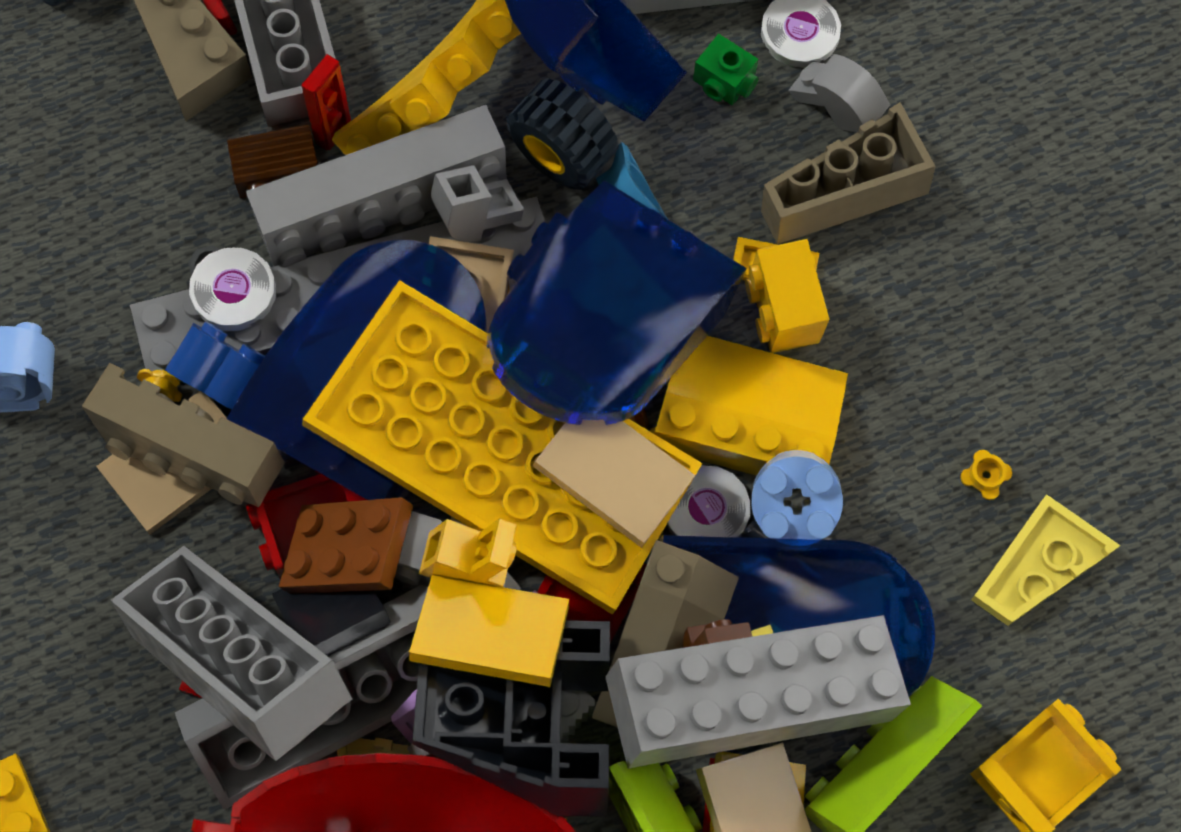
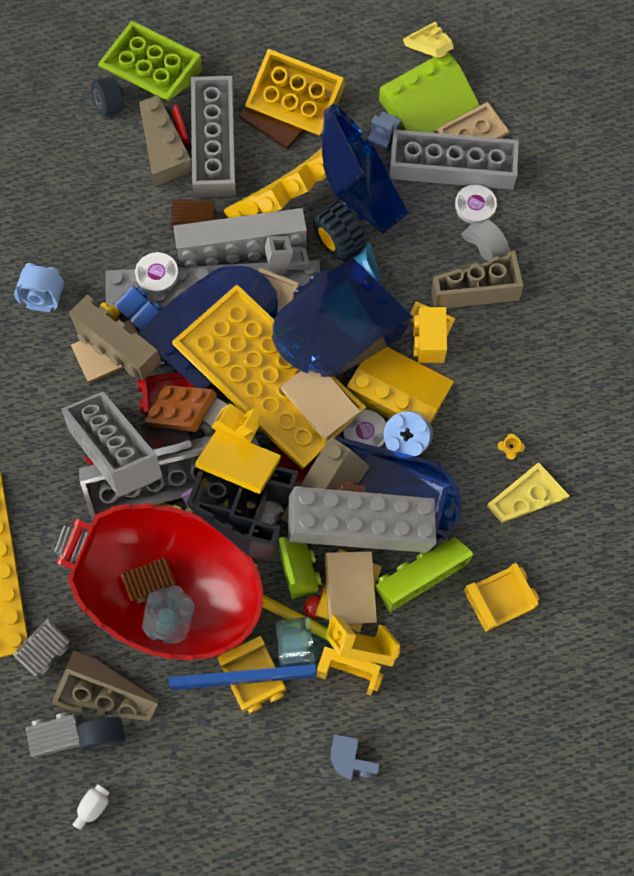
camera: 15 degrees right, 0 degrees up
(326, 101) = (224, 190): red tile -> none
(726, 71) = (431, 217): green brick -> none

